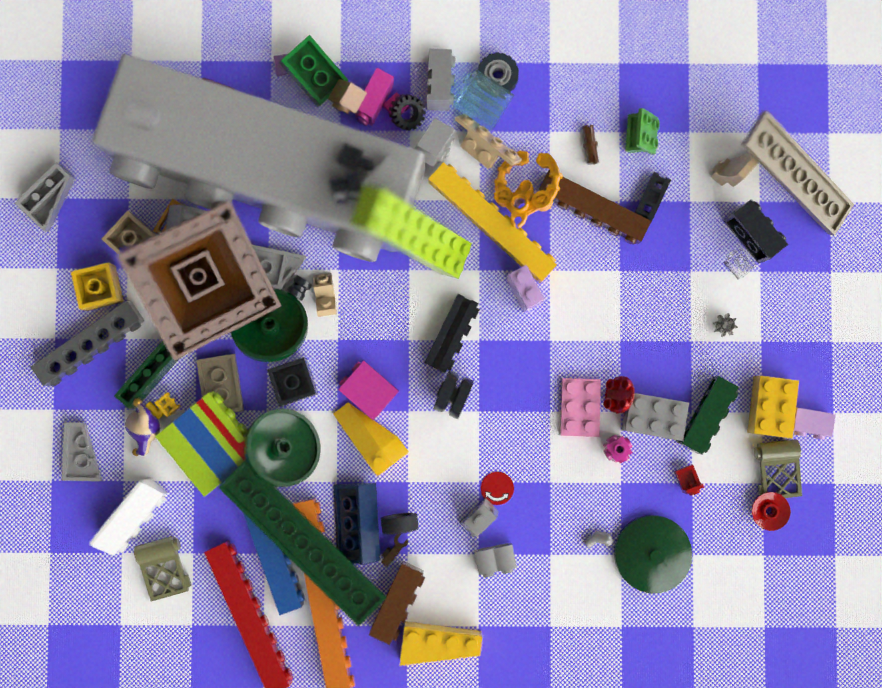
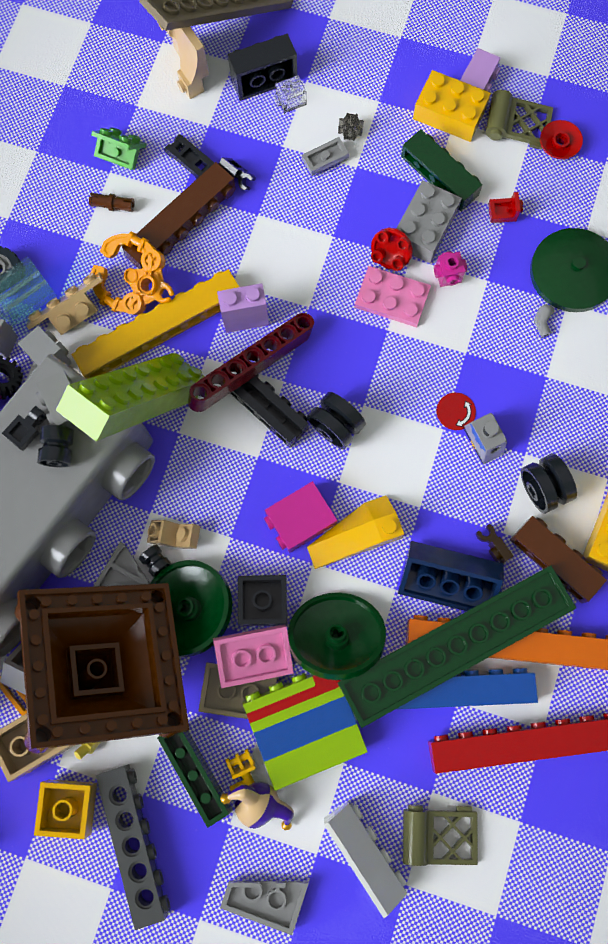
camera: 65 degrees left, 10 degrees down
(247, 389) = (253, 656): none -> bright pink plate
(399, 523) = (466, 526): black tyre -> none
(454, 579) = (548, 483): none -> black wheel
(489, 312) = (247, 370): none -> dark red beam
(495, 559) = (536, 434): light grey brick -> none
(652, 239) = (237, 171): none -> plate
(690, 311) = (325, 156): none -> light grey plate

